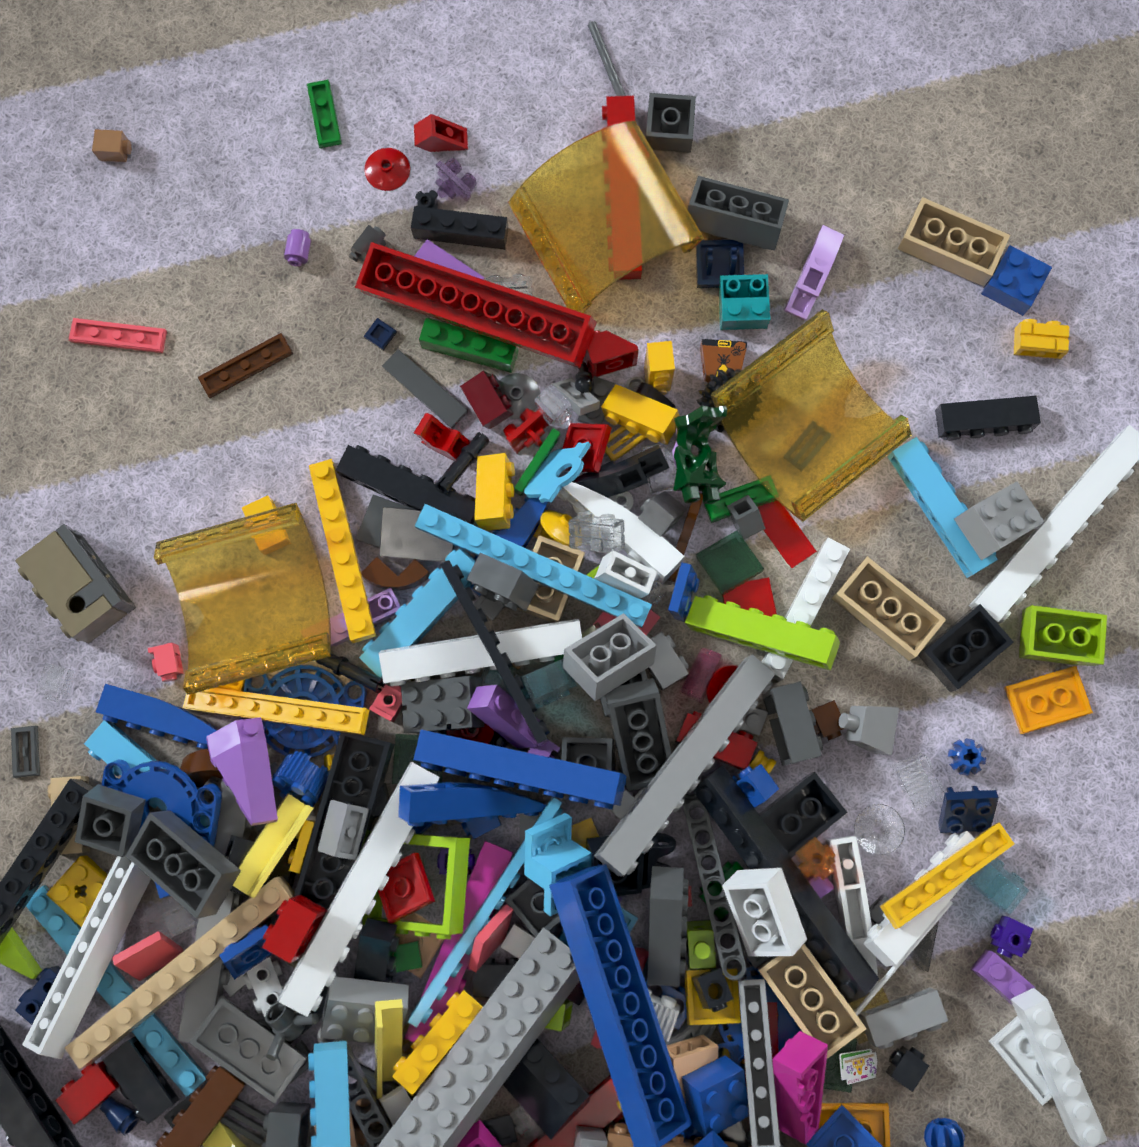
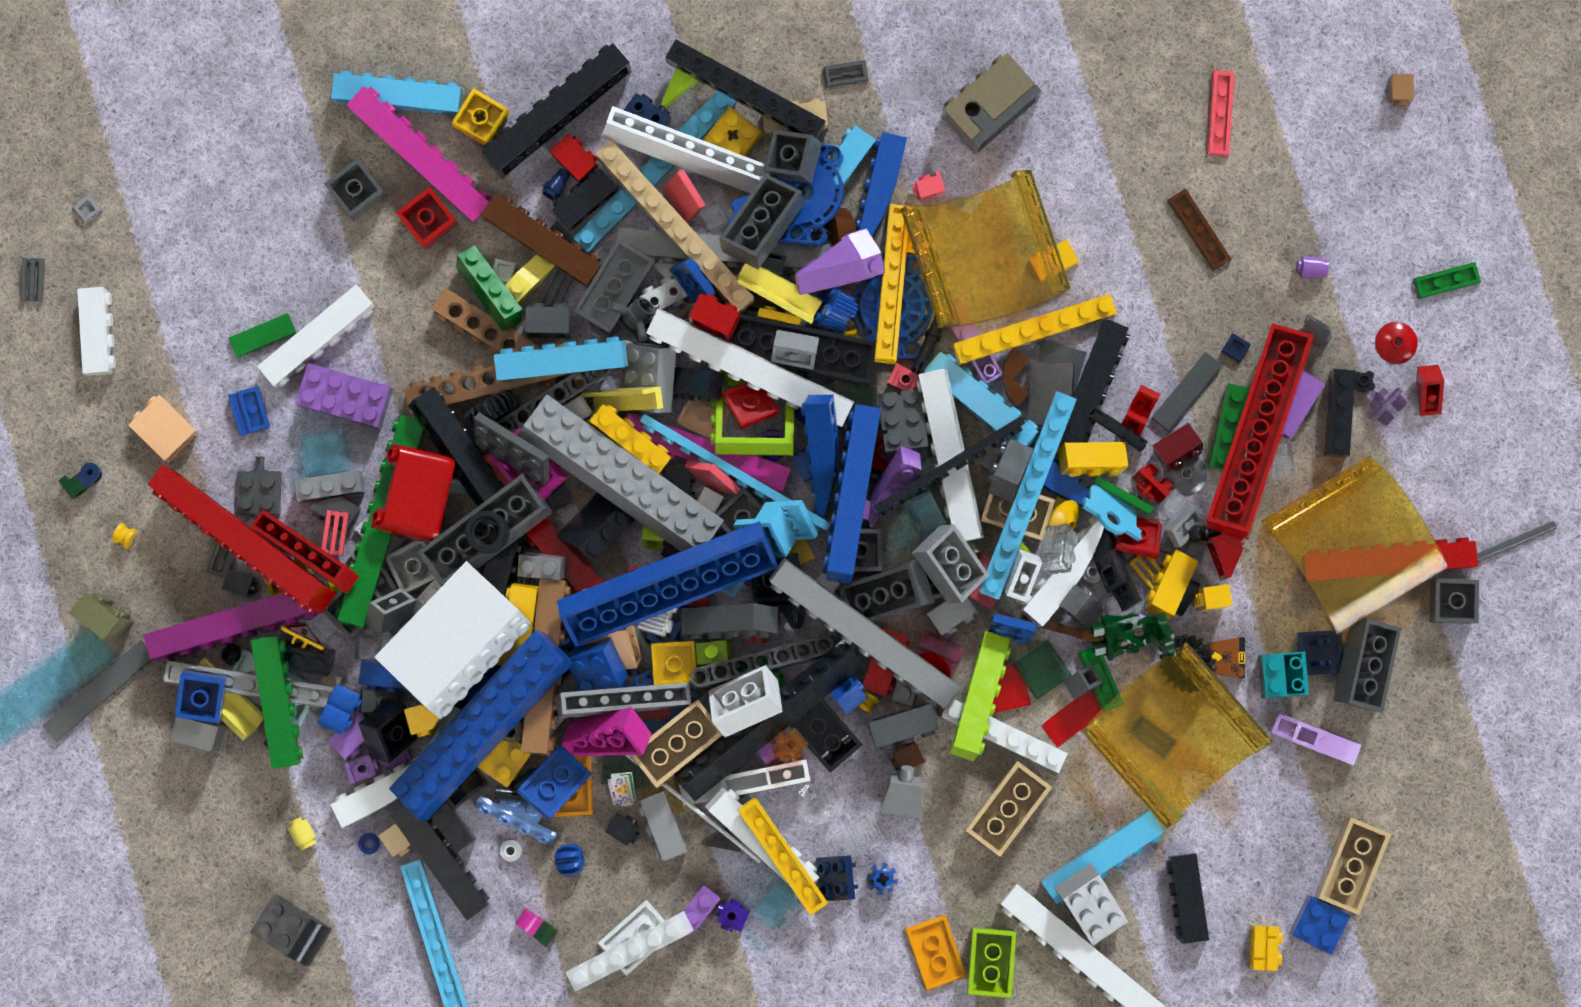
camera: 85 degrees right, 5 degrees up
(408, 956) = (693, 410): green tile -> none
(702, 984) = (690, 661): black brick -> none
(965, 648) = (976, 876): black brick -> none

